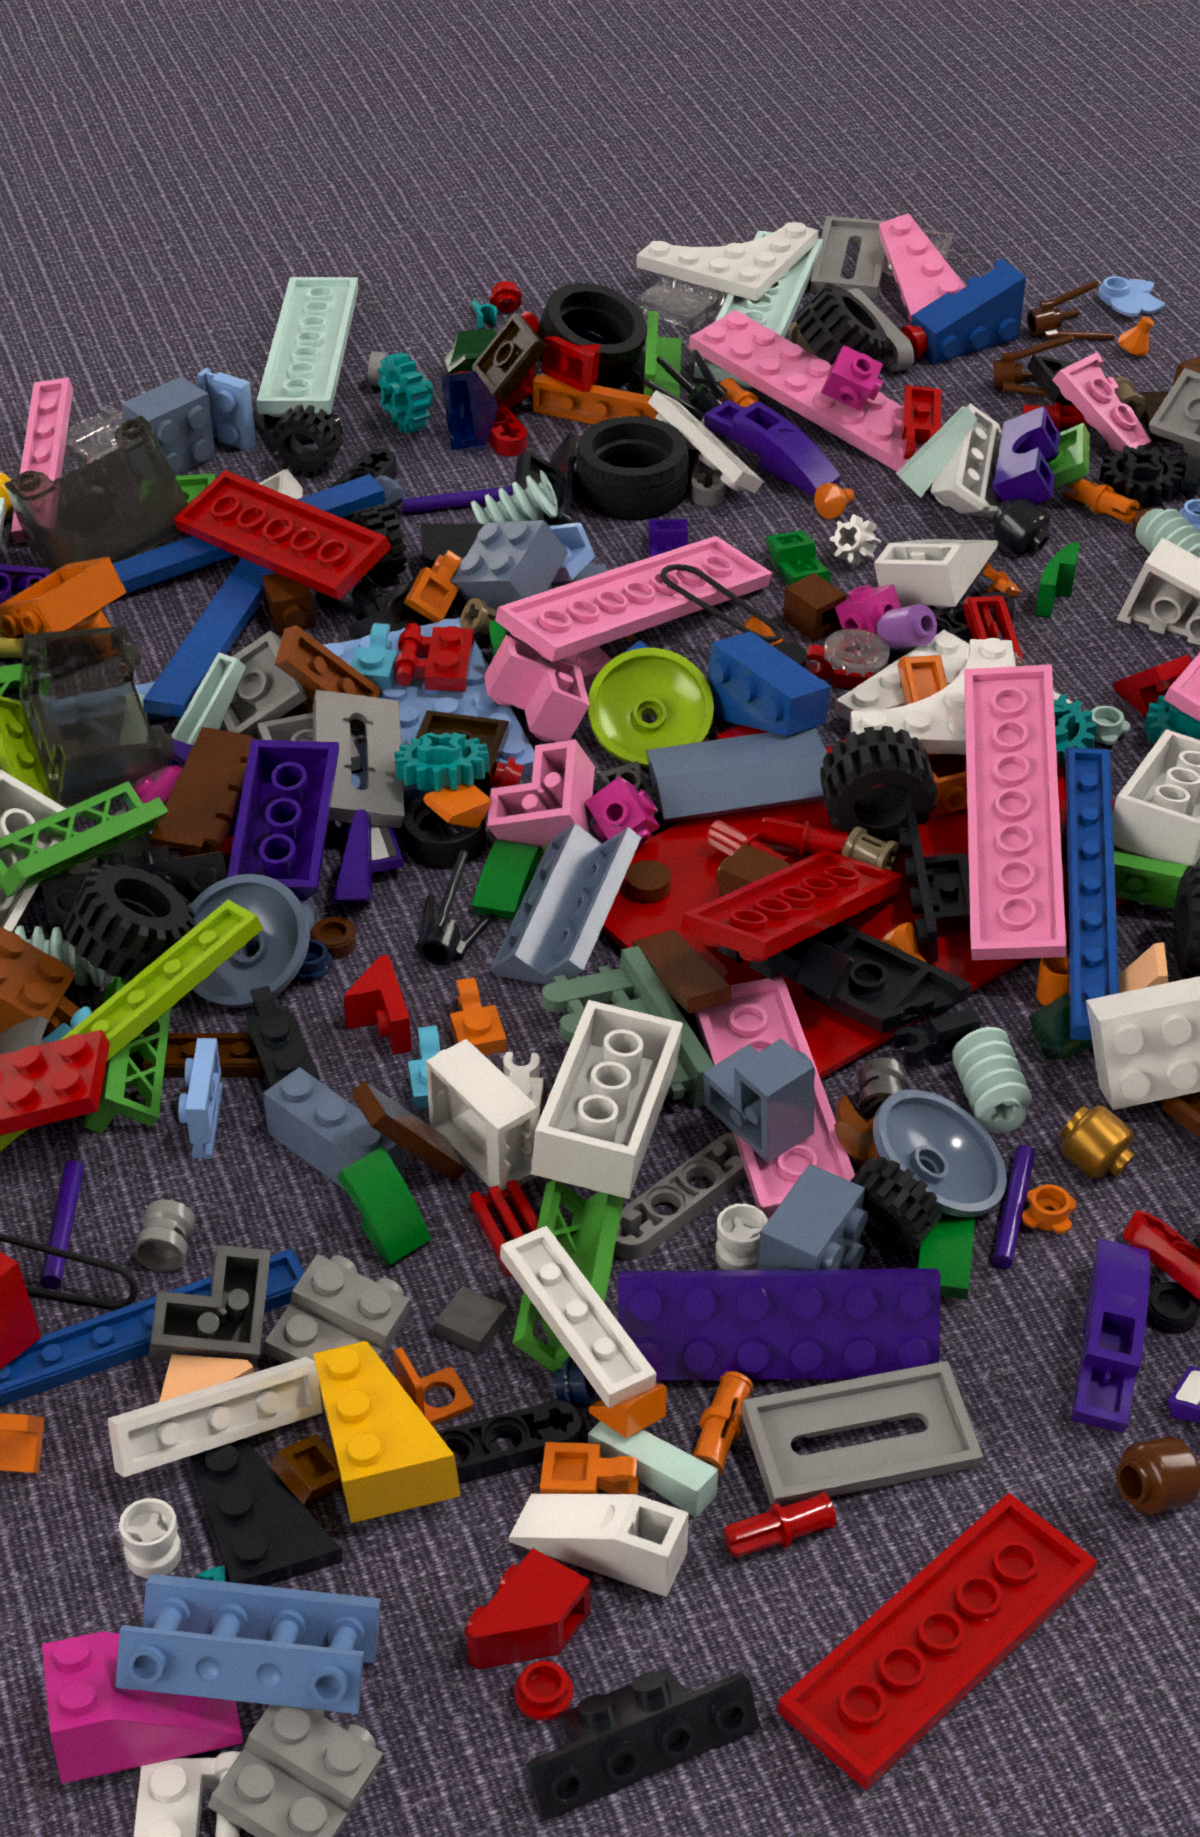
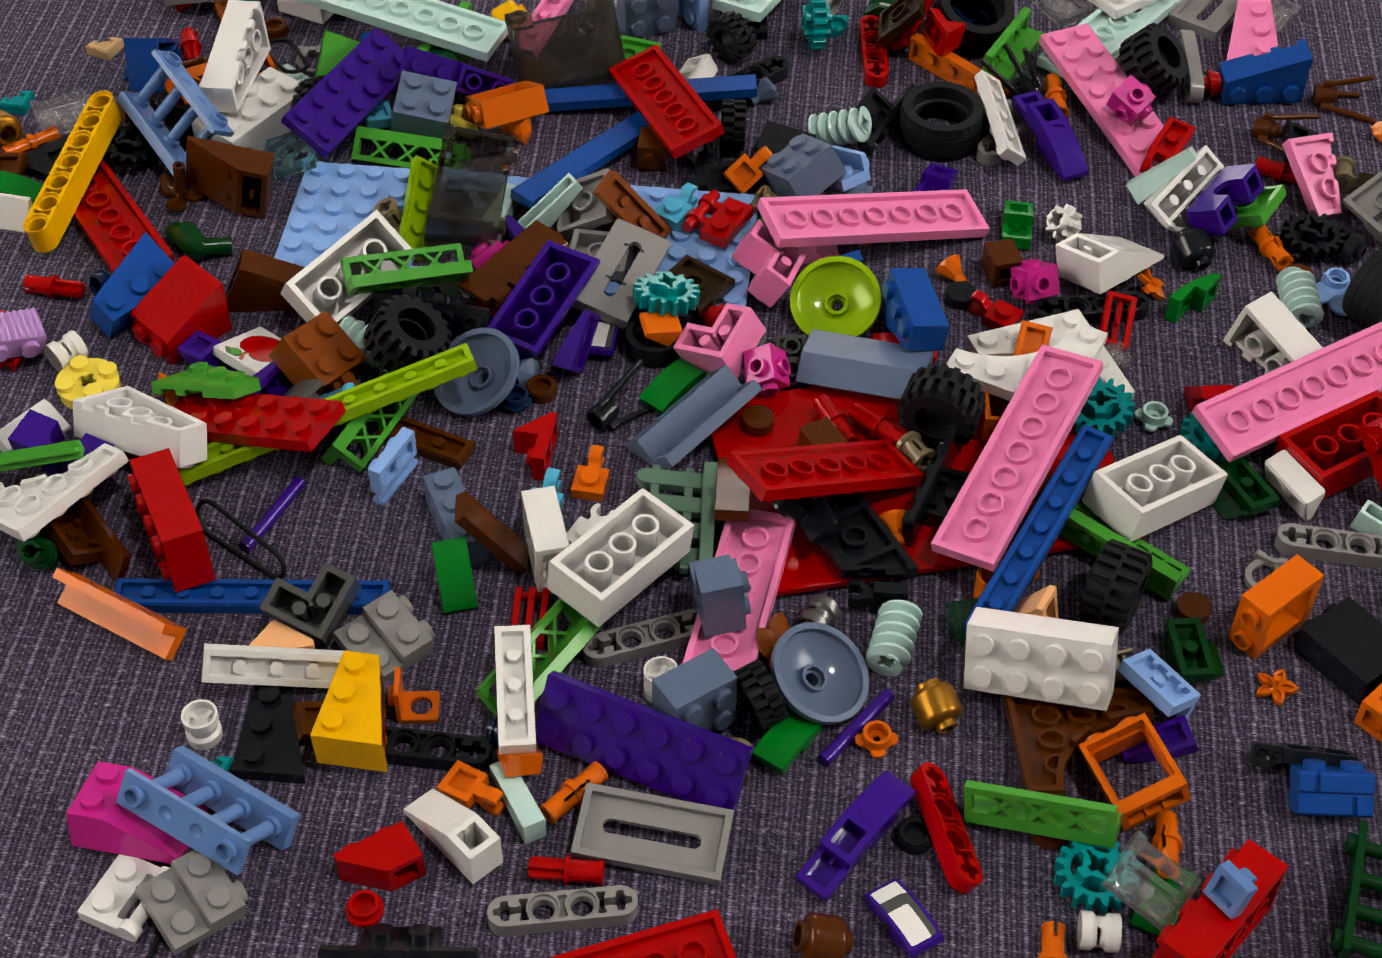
camera: 25 degrees right, 5 degrees up
(164, 1237) = (323, 541): light grey wheel -> none
(276, 1039) = (460, 445): black hinge -> none
(450, 500) = (803, 107): dark purple bar -> none
(468, 409) = (854, 46): clear blue slope -> none
(471, 1320) = (468, 666): flat silver tile -> none
(669, 583) = (919, 243): black piece -> none
(803, 1574) = (563, 917): none -> light grey beam
(831, 500) = (1071, 187): orange rock -> none
(870, 649) = (1015, 301): clear gear -> none
(907, 627) = (1048, 299): medium lavender brick -> none

